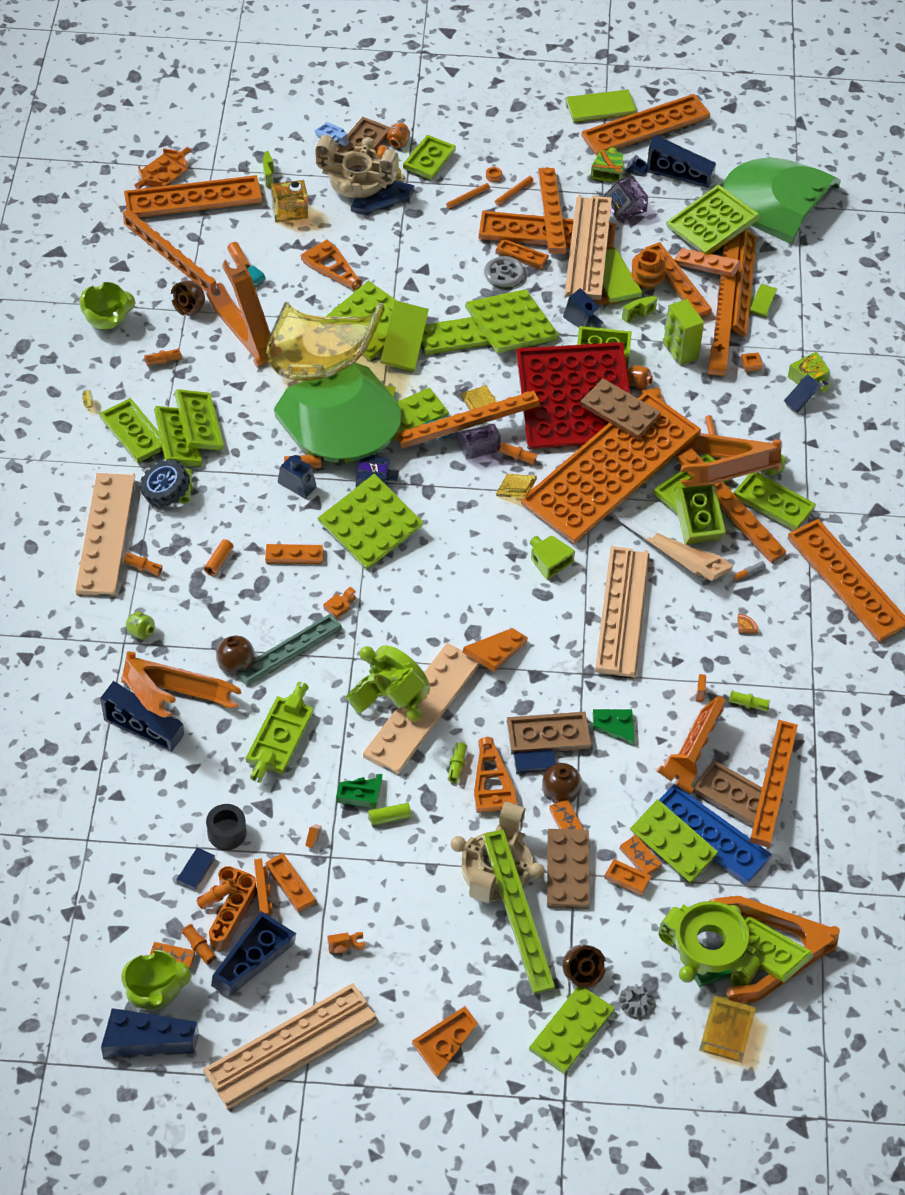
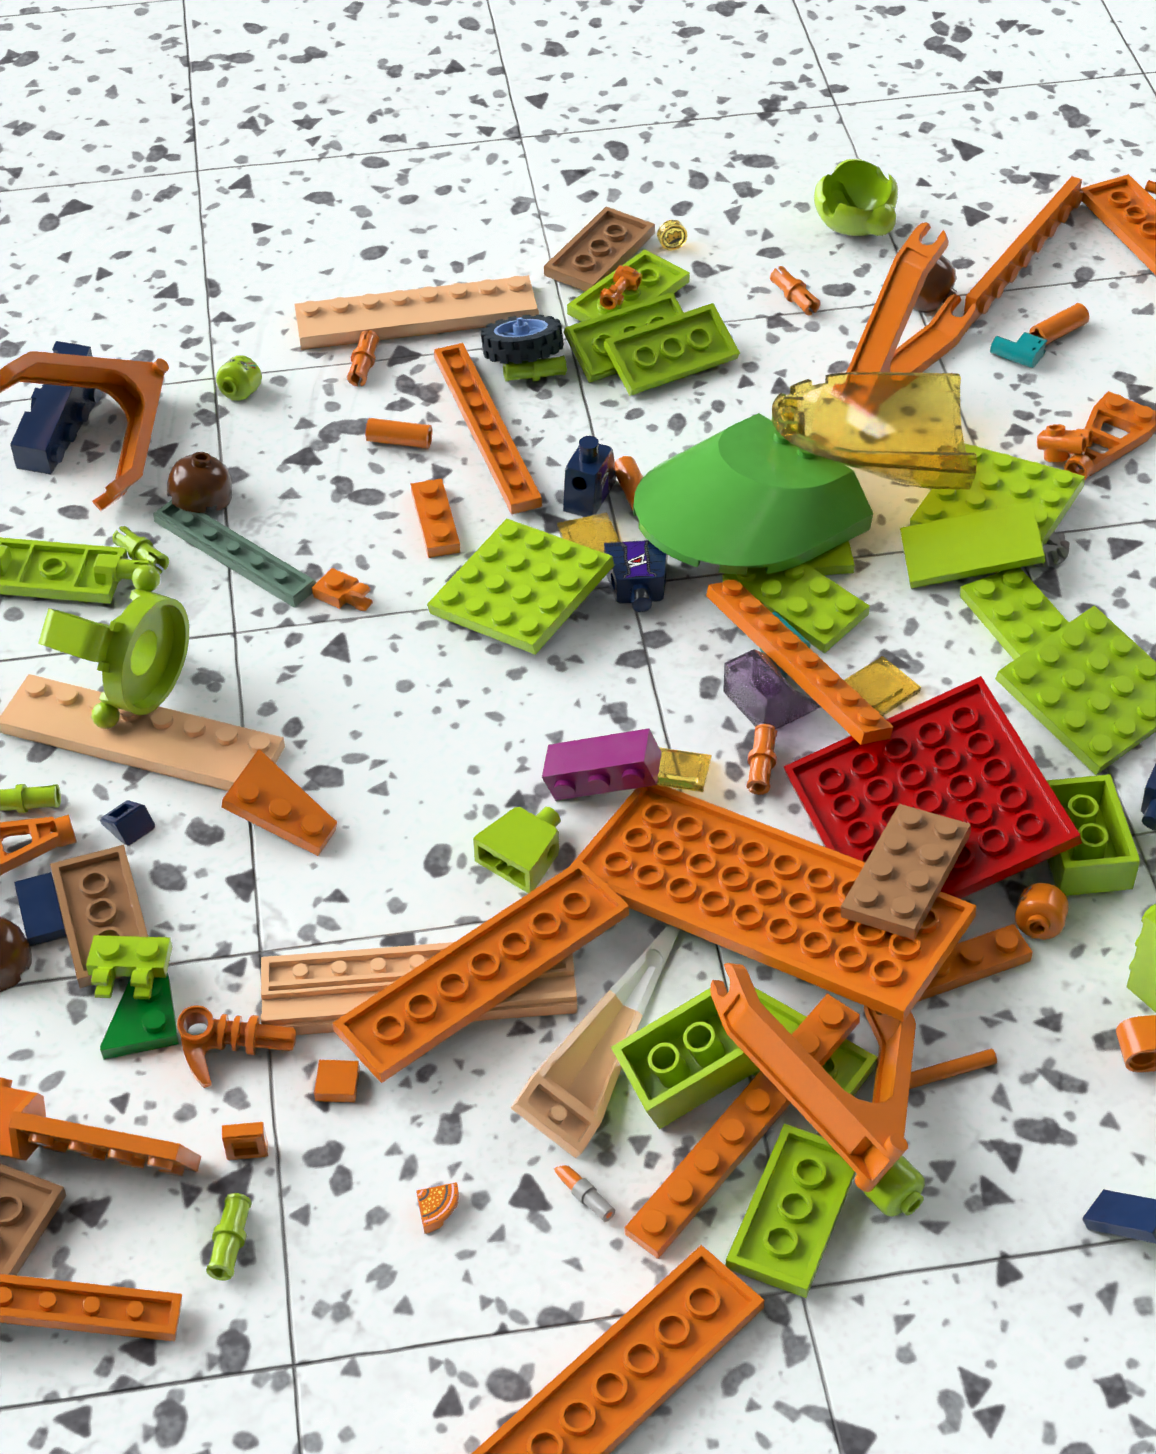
camera: 80 degrees right, 5 degrees down
(86, 435) = (599, 249): none -> medium nougat plate
(133, 423) = (624, 278): none -> orange bar
(228, 516) = (488, 429): none -> orange plate
(276, 690) = (140, 548): none -> lime pin
(332, 490) = (589, 531): none -> clear yellow piece
(337, 281) = (1061, 443): none -> orange plate
(482, 719) = (128, 822): none -> dark blue slope
(515, 510) = (602, 764): none -> magenta brick
(586, 716) = (130, 957): none -> lime plate
(630, 579) = (480, 970): none -> orange plate
(635, 696) = (224, 1032): none -> orange piece
(670, 651) = (337, 1081): none -> orange tile

